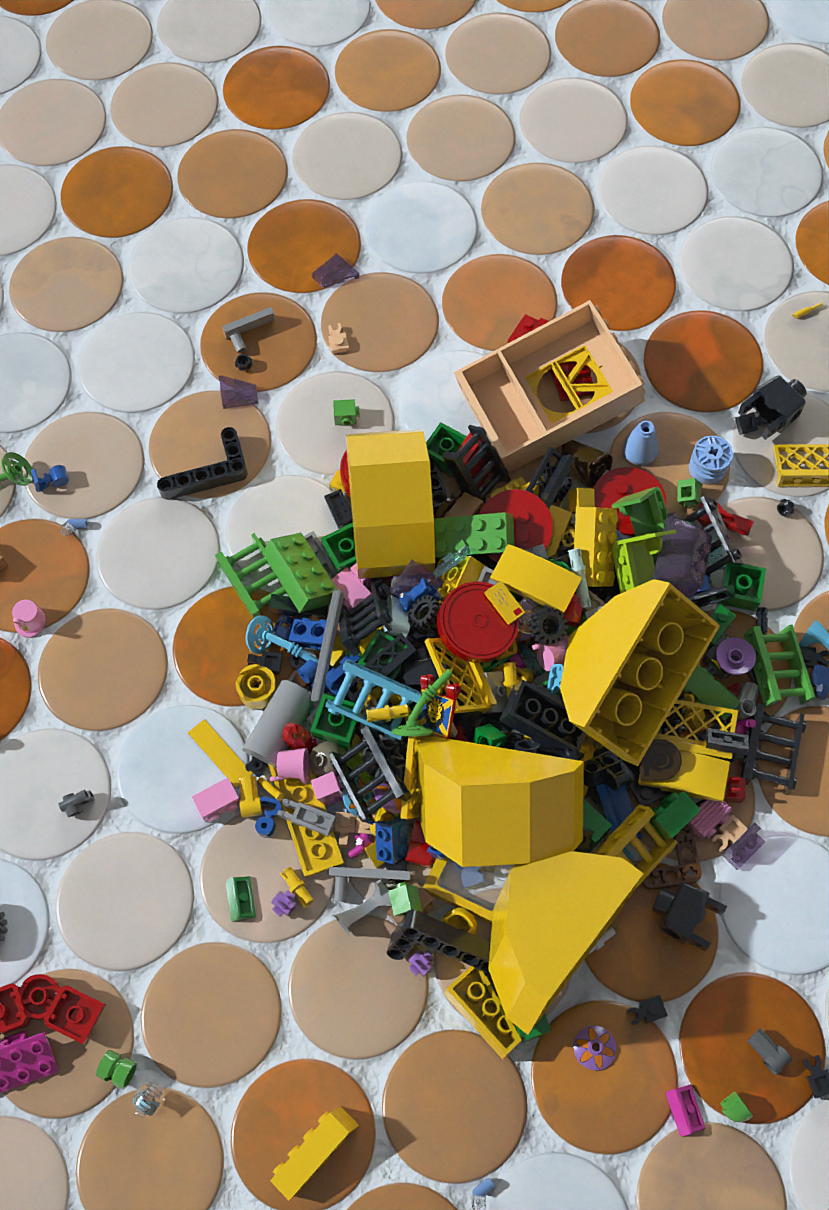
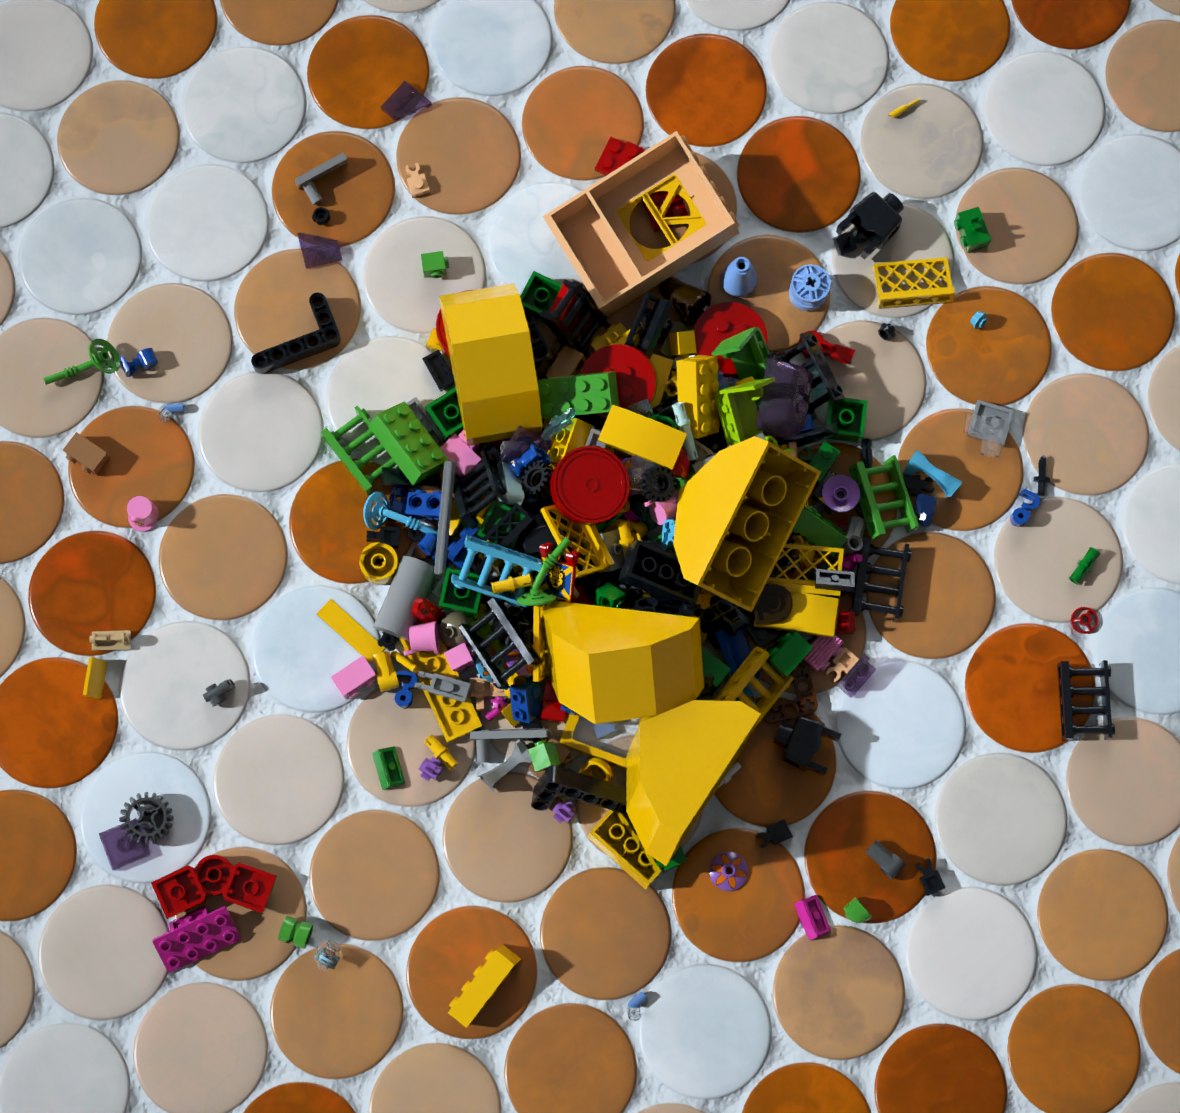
camera: 10 degrees left, 10 degrees up
(504, 602) = (614, 465): yellow tile -> none
(686, 489) = (790, 324): bright green brick -> none

